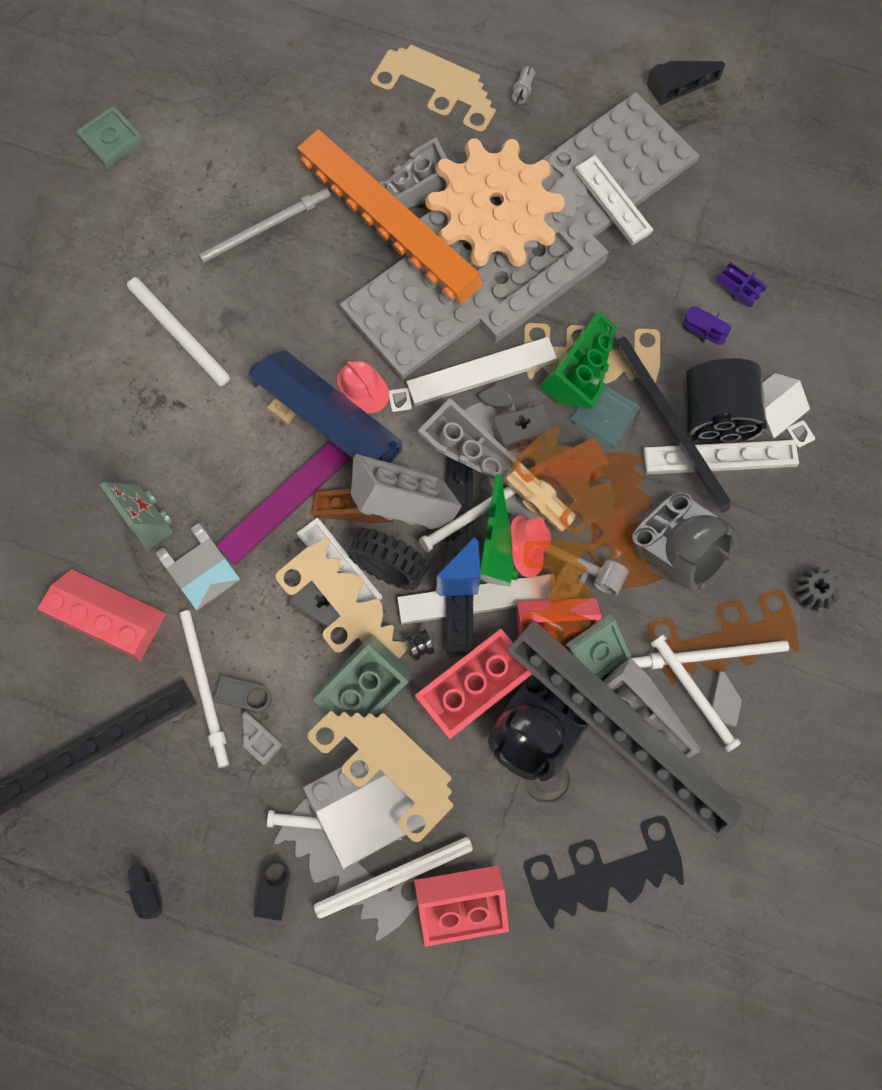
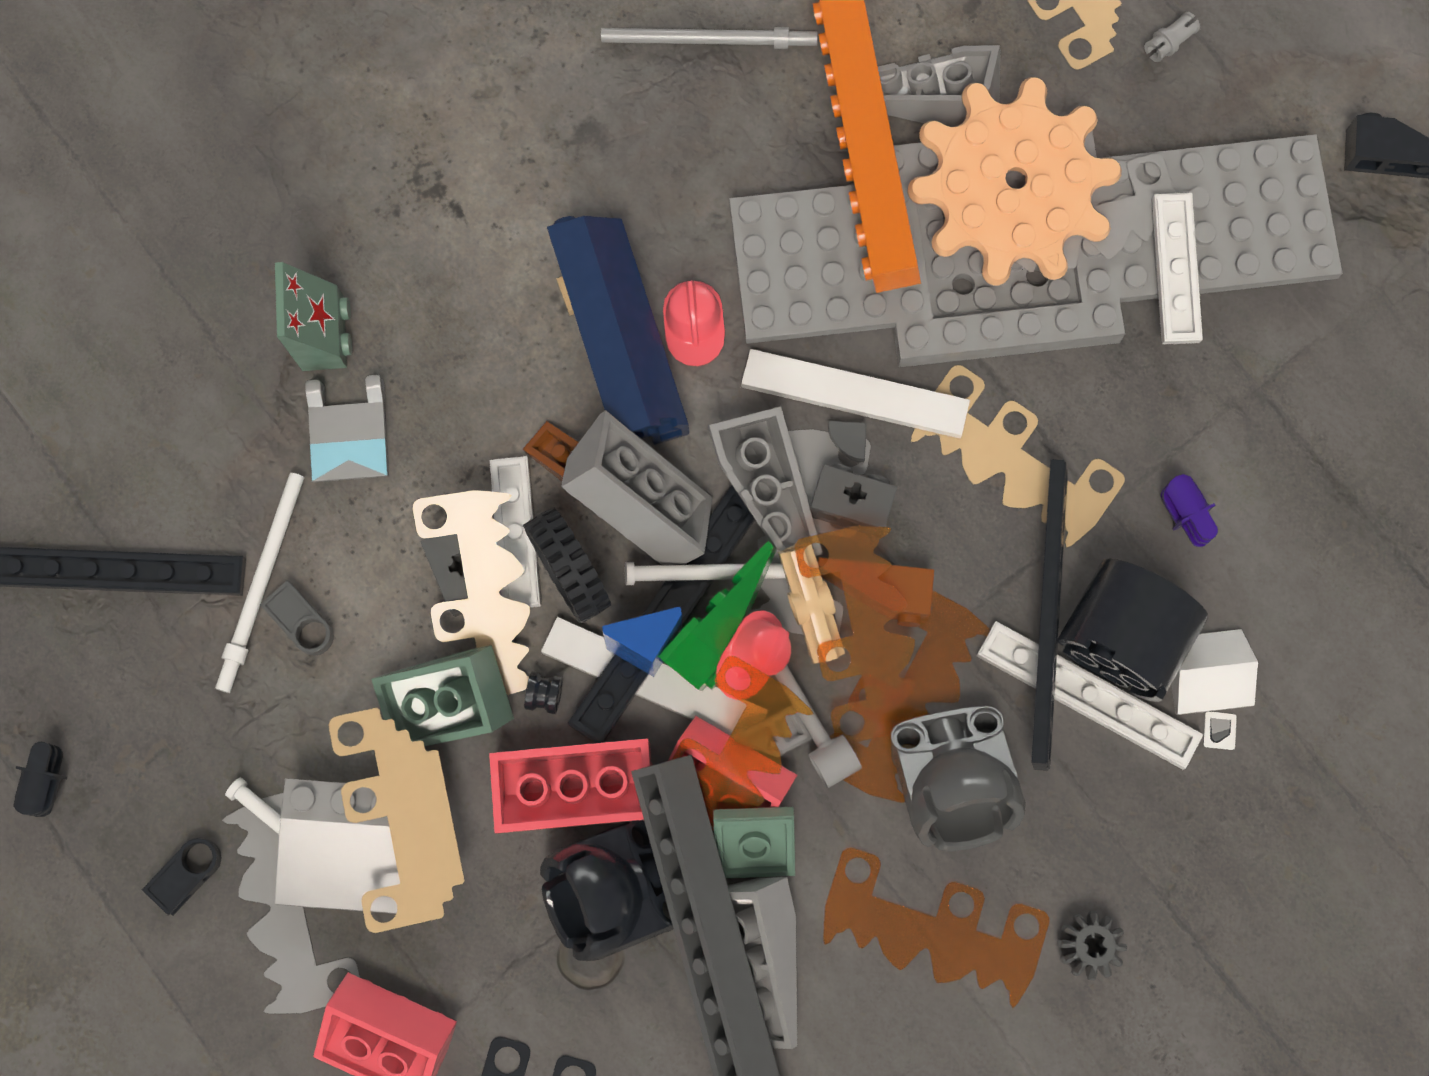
camera: 40 degrees right, 5 degrees up
(102, 613) = (200, 417): coral slope -> none
(175, 328) = (512, 115): white axle -> none
(258, 740) = (282, 686): light grey tile -> none
(282, 503) = (493, 413): magenta tile -> none
(393, 877) = (330, 952): white axle -> none
(400, 399) = (729, 367): white sticker -> none
(582, 368) = (981, 470): green wedge -> none
(607, 418) = (976, 546): clear light blue tile -> none
(656, 660) = (823, 901): white bar -> none
(695, 693) = (839, 975): white bar -> none
(726, 701) = (873, 1009): light grey tile -> none
(739, 282) = (1274, 477): dark purple arm -> none

